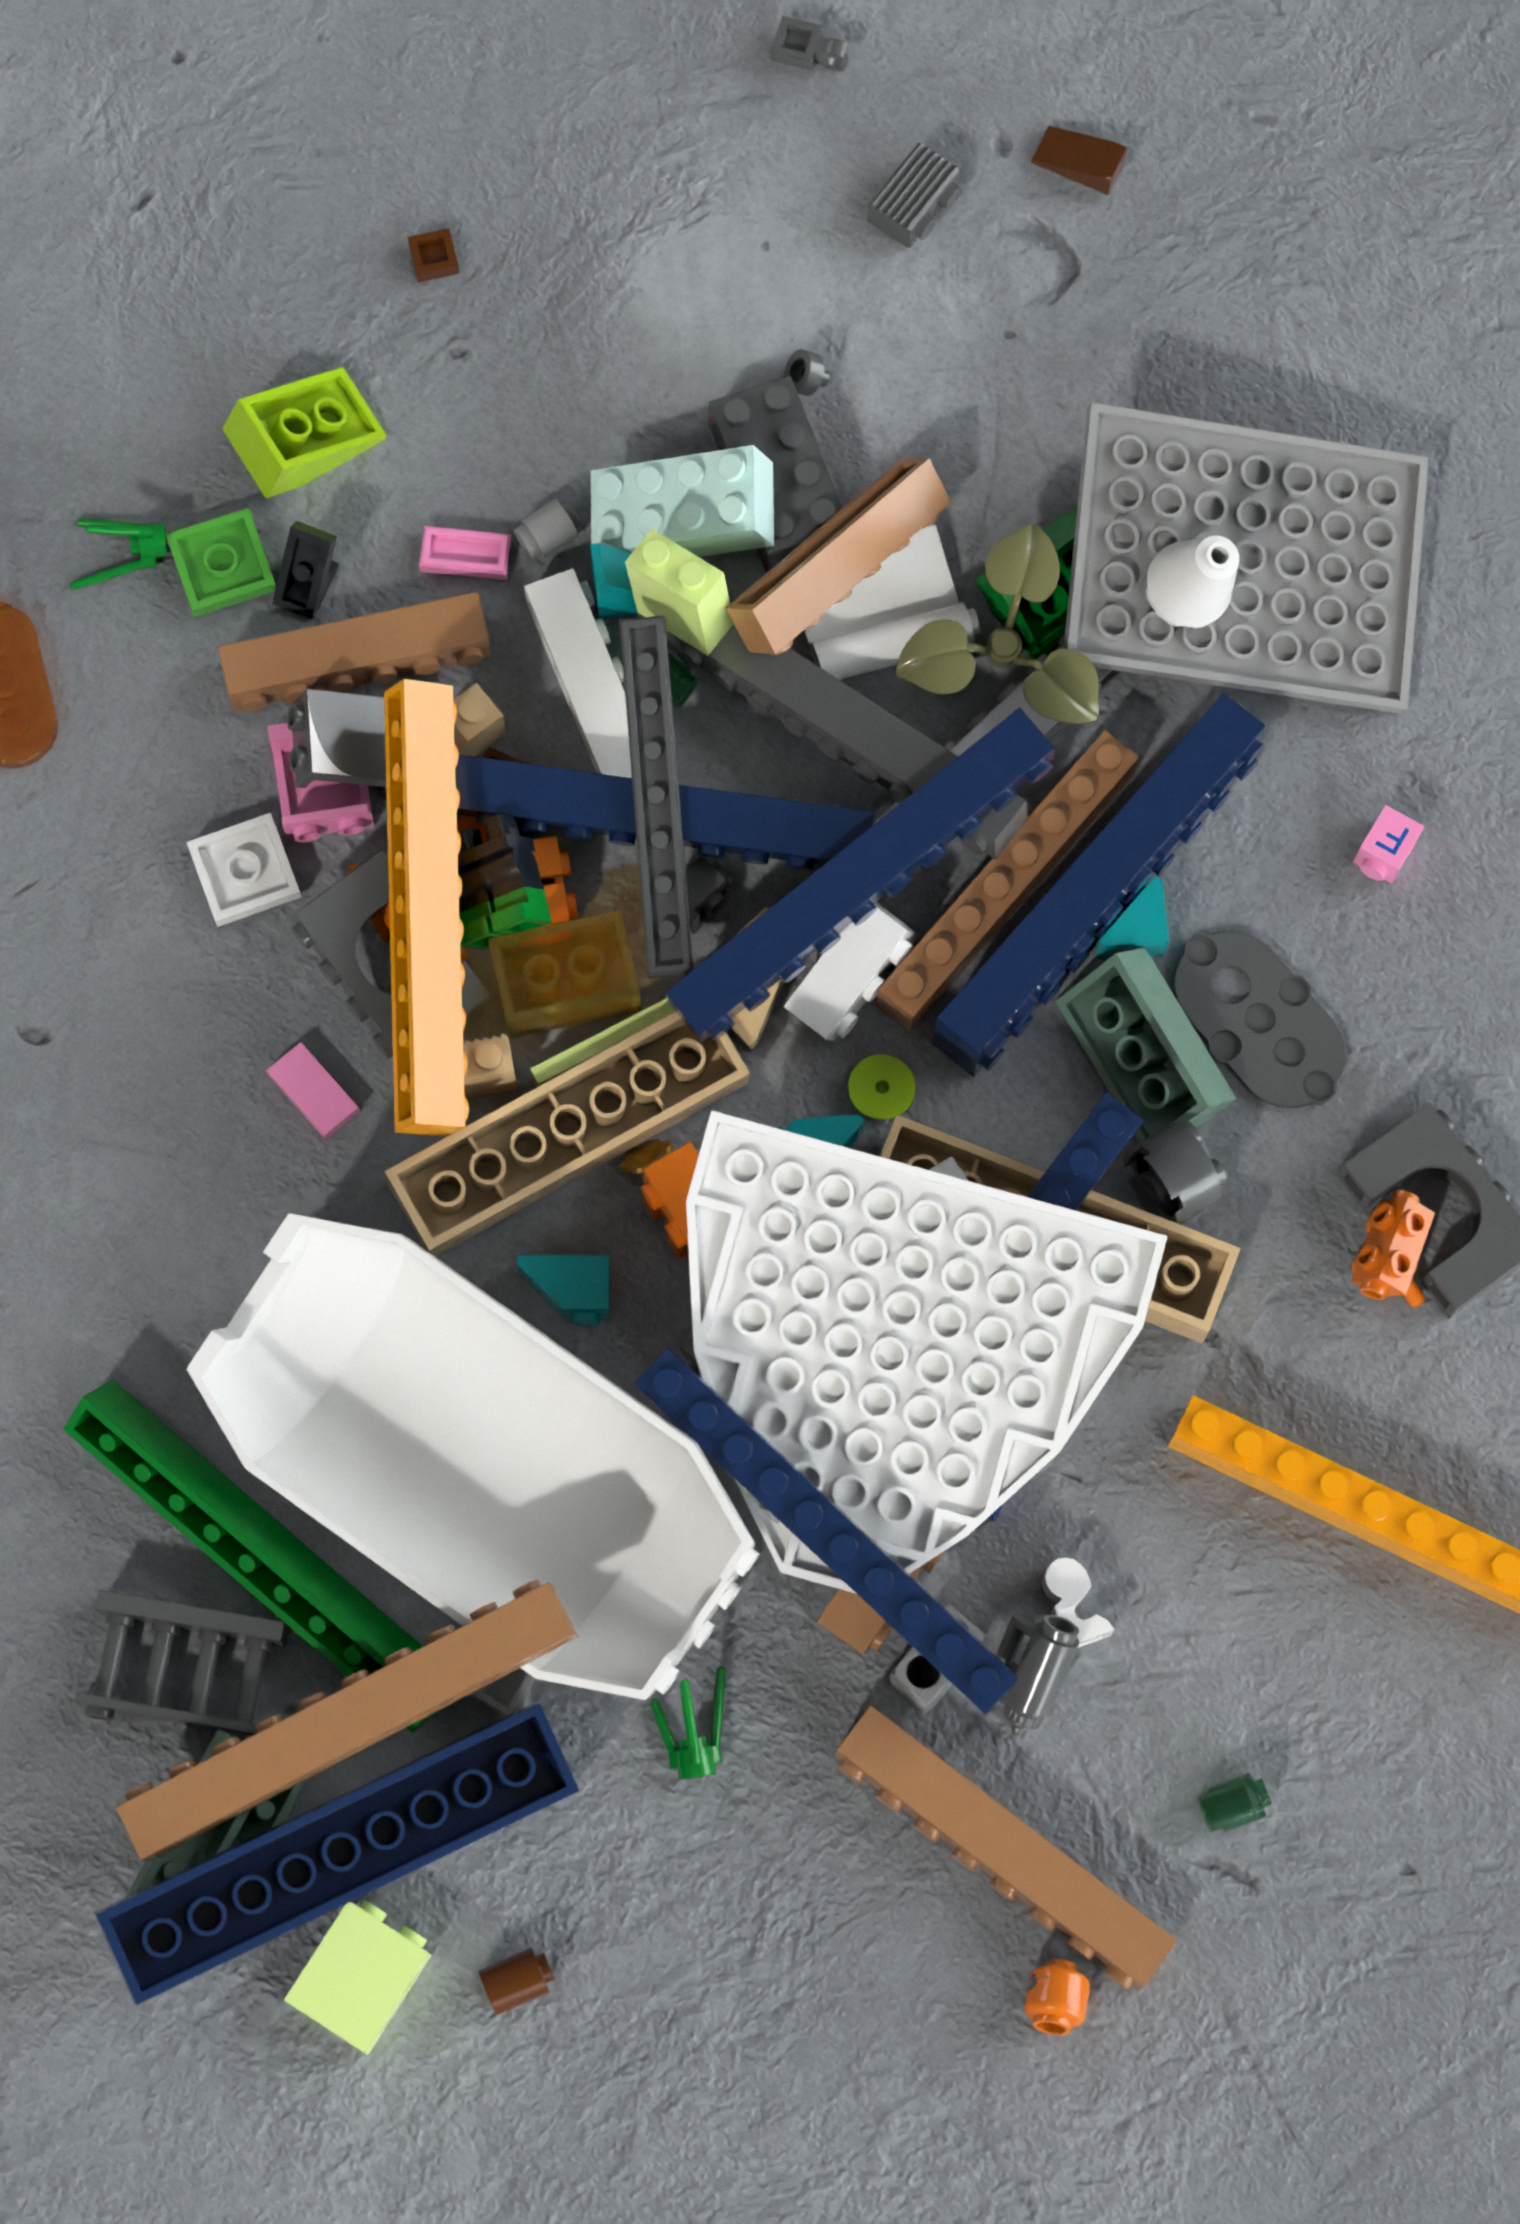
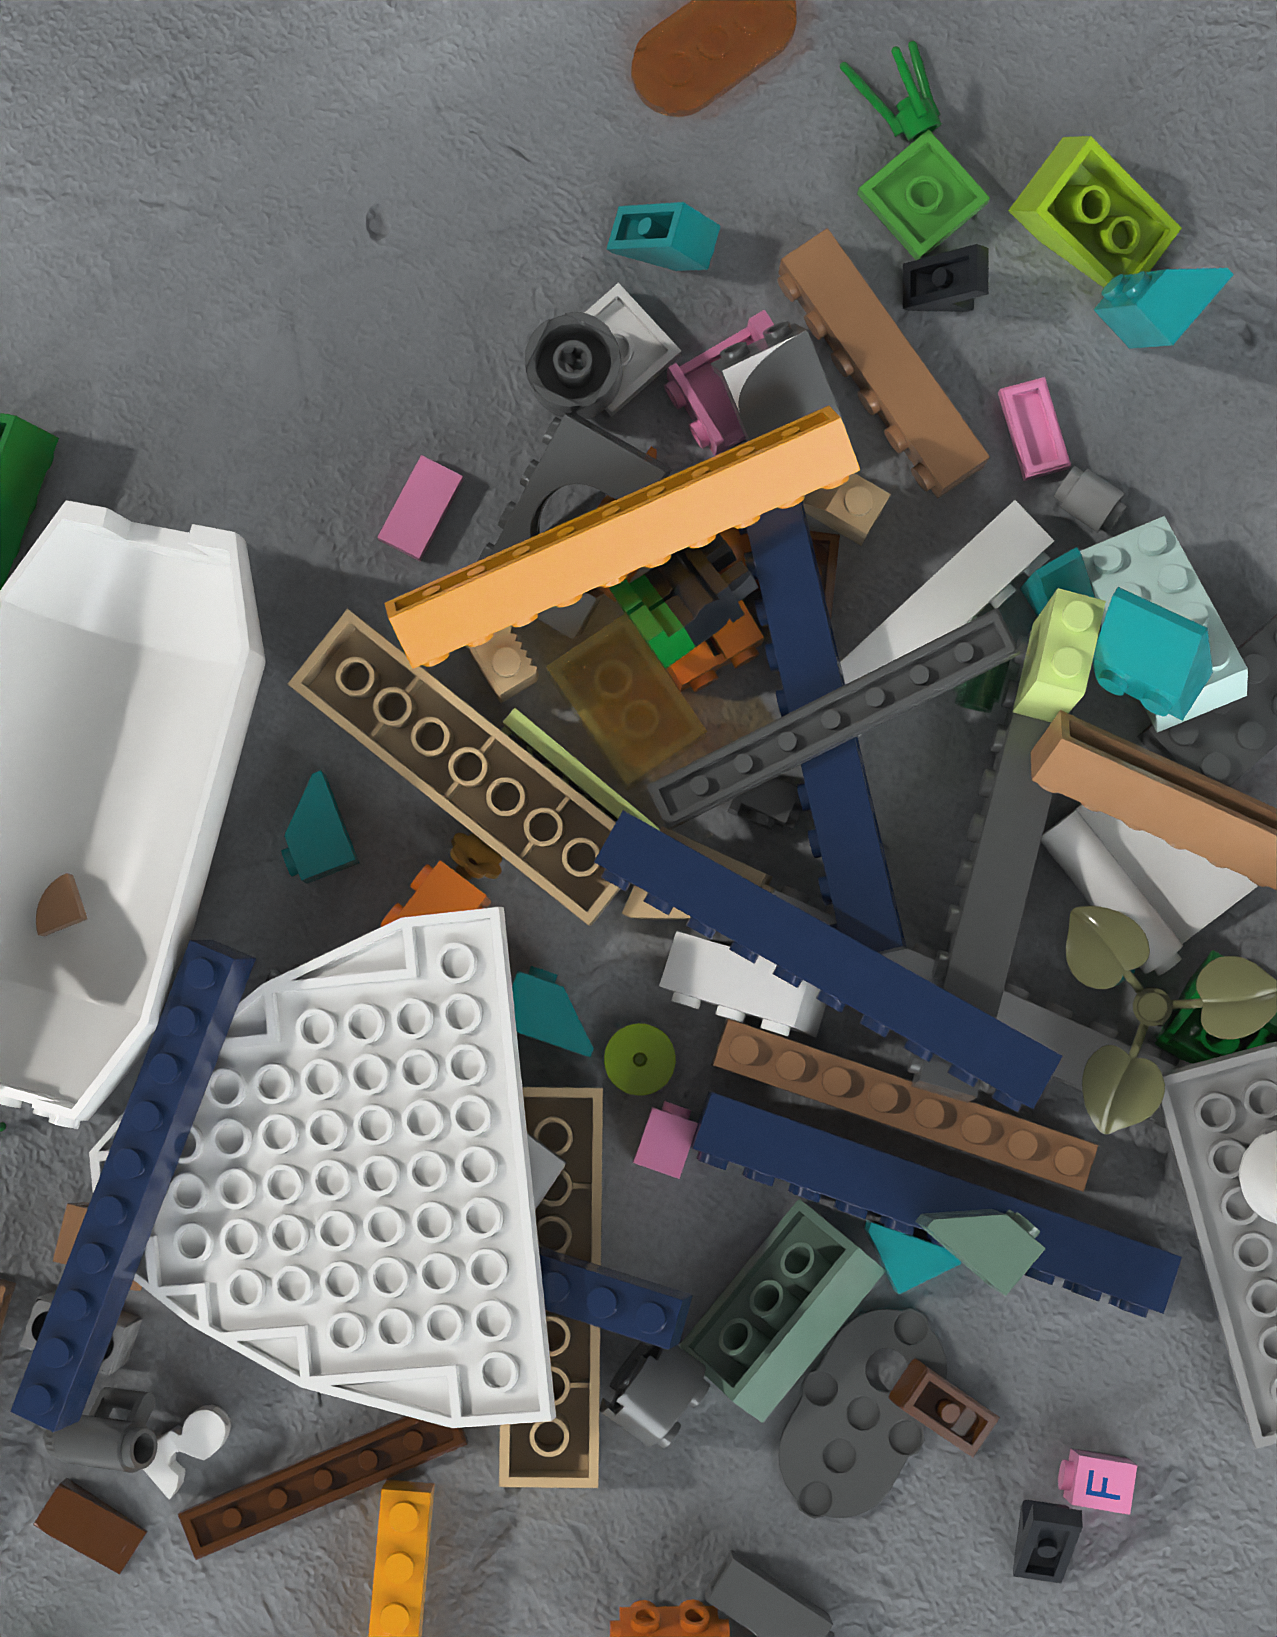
camera: 65 degrees right, 10 degrees up
(160, 789) = (664, 235): none -> teal slope
(253, 875) = (565, 341): none -> dark grey brick
(406, 406) = (1158, 304): none -> teal slope
(544, 1537) = (59, 906): none -> medium nougat tile
(712, 508) = (1152, 655): none -> teal slope
(961, 1089) = (666, 1140): none -> bright pink brick
(1112, 1719) = (90, 1526): none -> reddish brown slope
(1145, 1499) = (315, 1482): none -> reddish brown tile
(1156, 834) = (987, 1242): none -> sand green slope
(1278, 948) = (943, 1407): none -> reddish brown slope
(1422, 906) = (1045, 1540): none -> black slope

